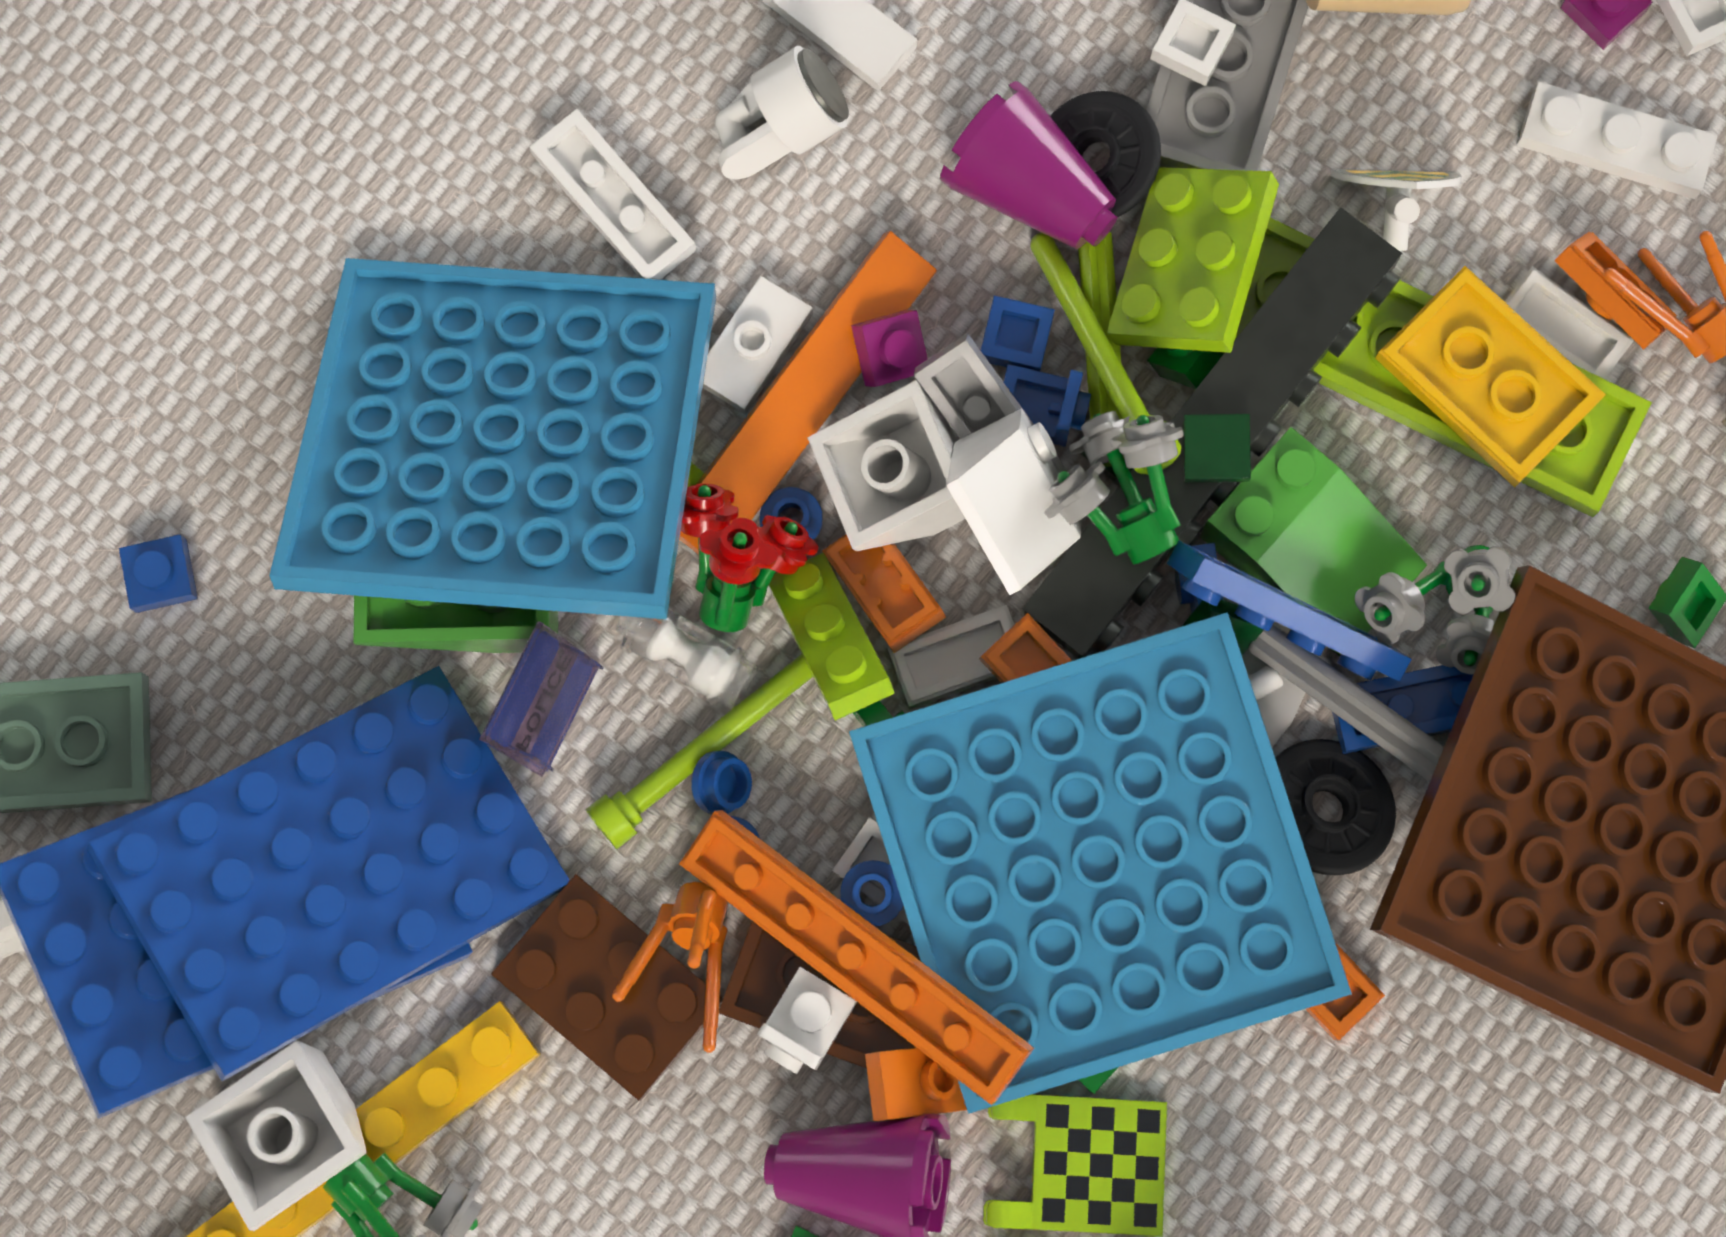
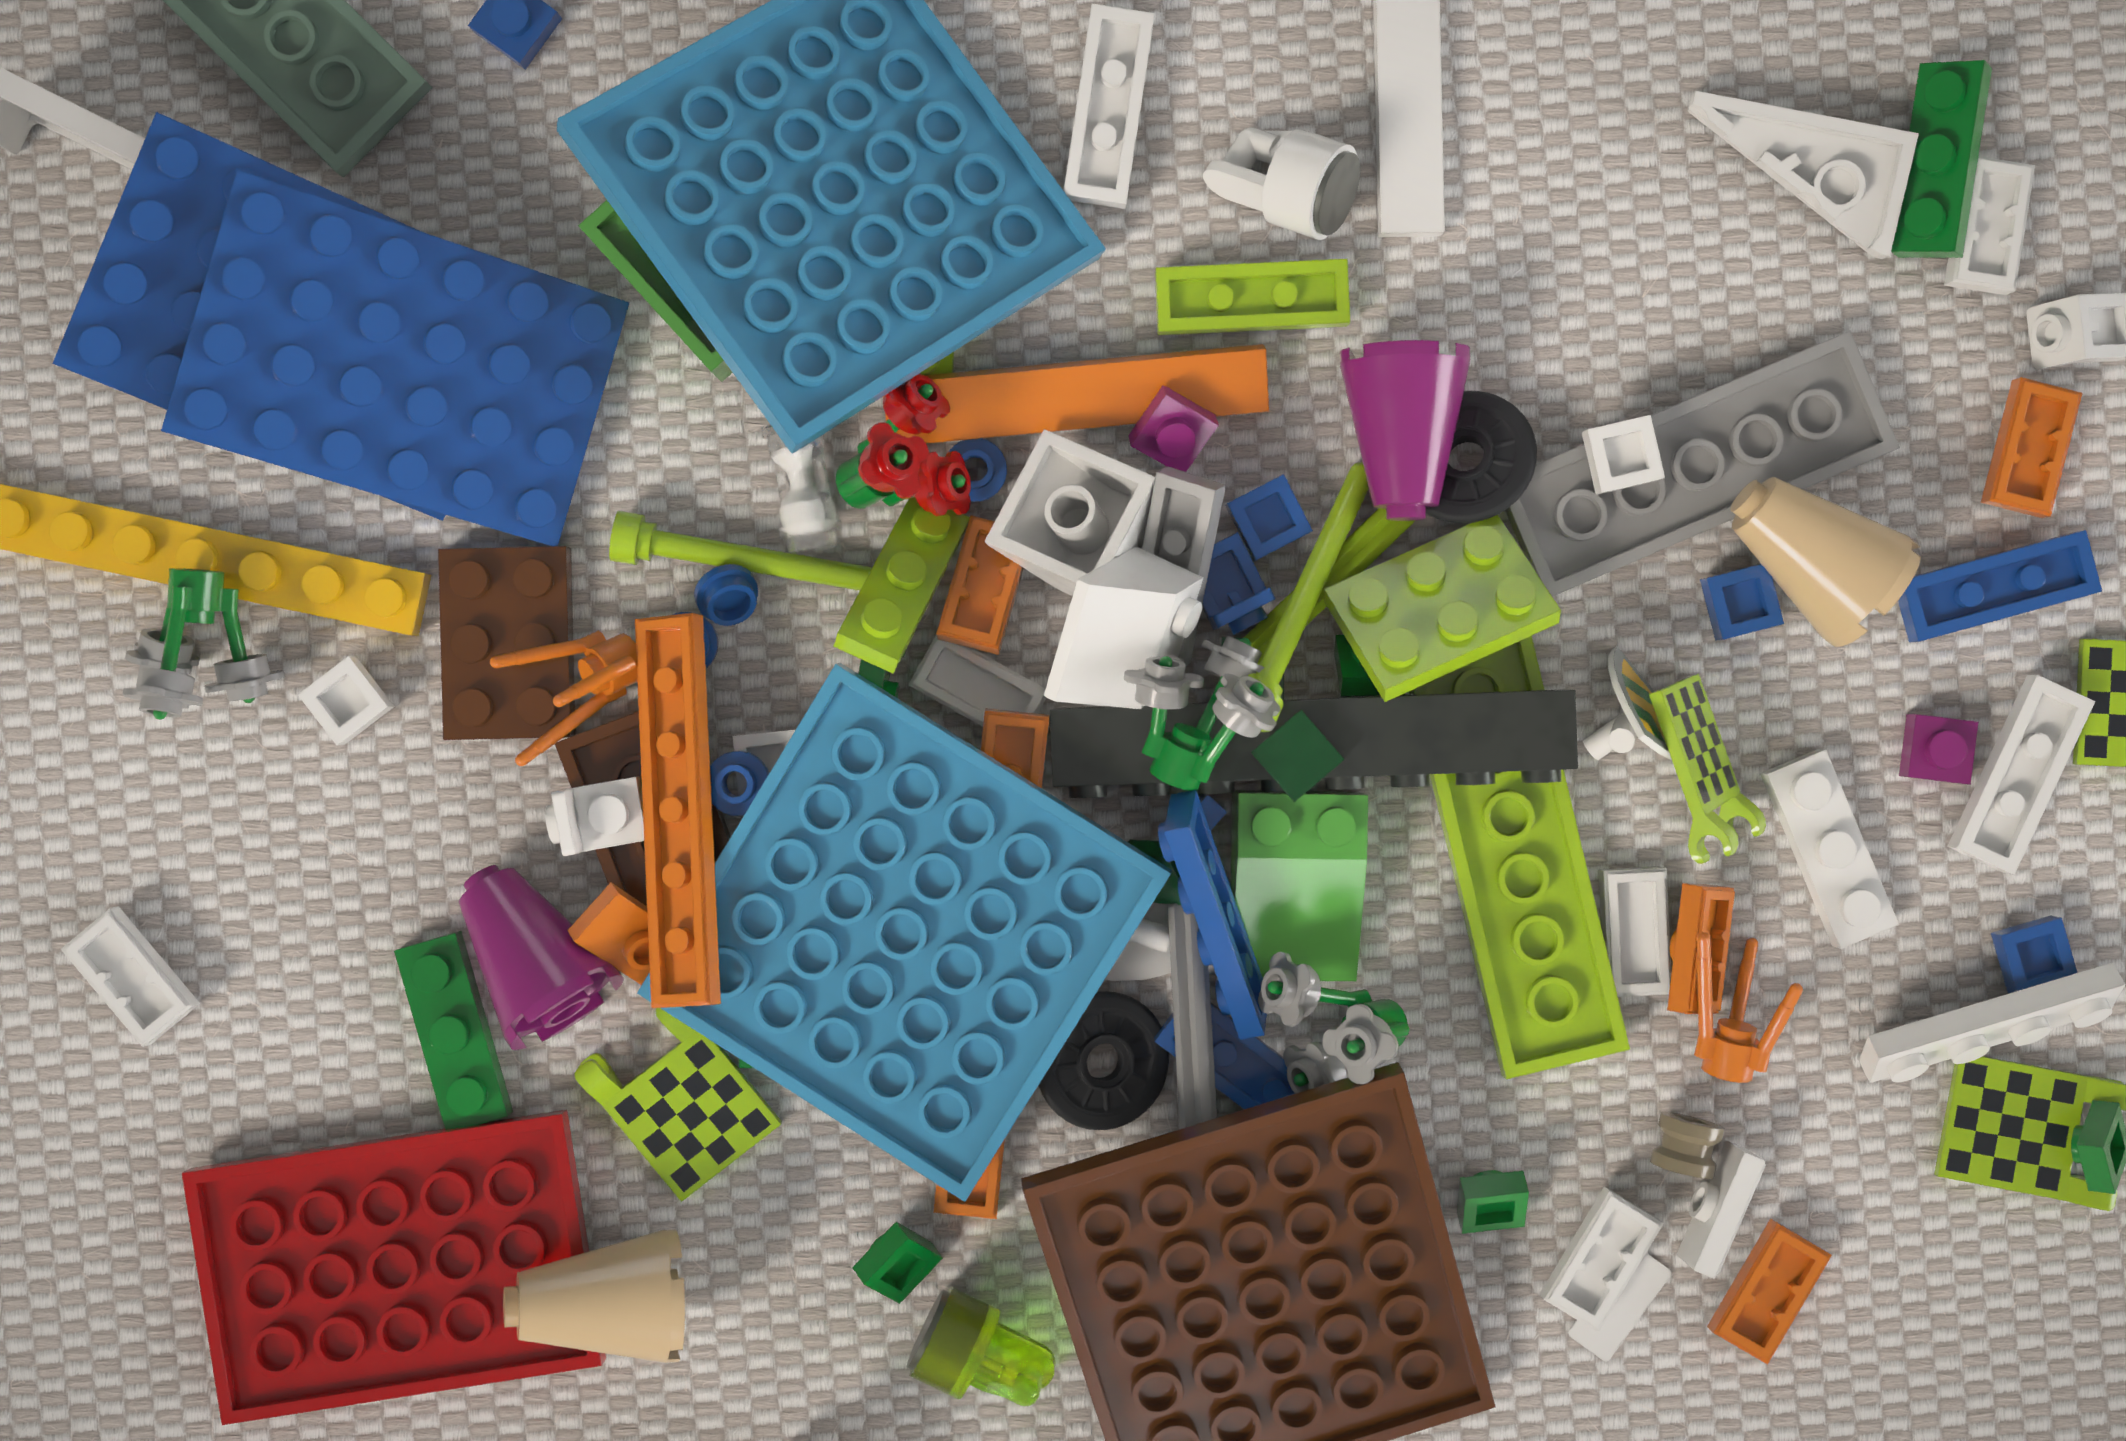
camera: 45 degrees right, 10 degrees up
(279, 1132) = (180, 503): white slope -> none
(540, 700) = (663, 406): clear purple piece -> none
(541, 1150) = (346, 700): none -> white plate
(754, 344) = (1089, 320): white plate -> none
(842, 212) = (1252, 297): none -> lime plate
(1355, 1101) = (897, 1262): none -> green plate
(1374, 52) = (1741, 602): none -> blue plate
(1465, 1100) = (968, 1346): none -> clear neon green piece
(1482, 174) = (1703, 767): none -> lime flag
(1490, 376) = (1544, 911): yellow tile -> none

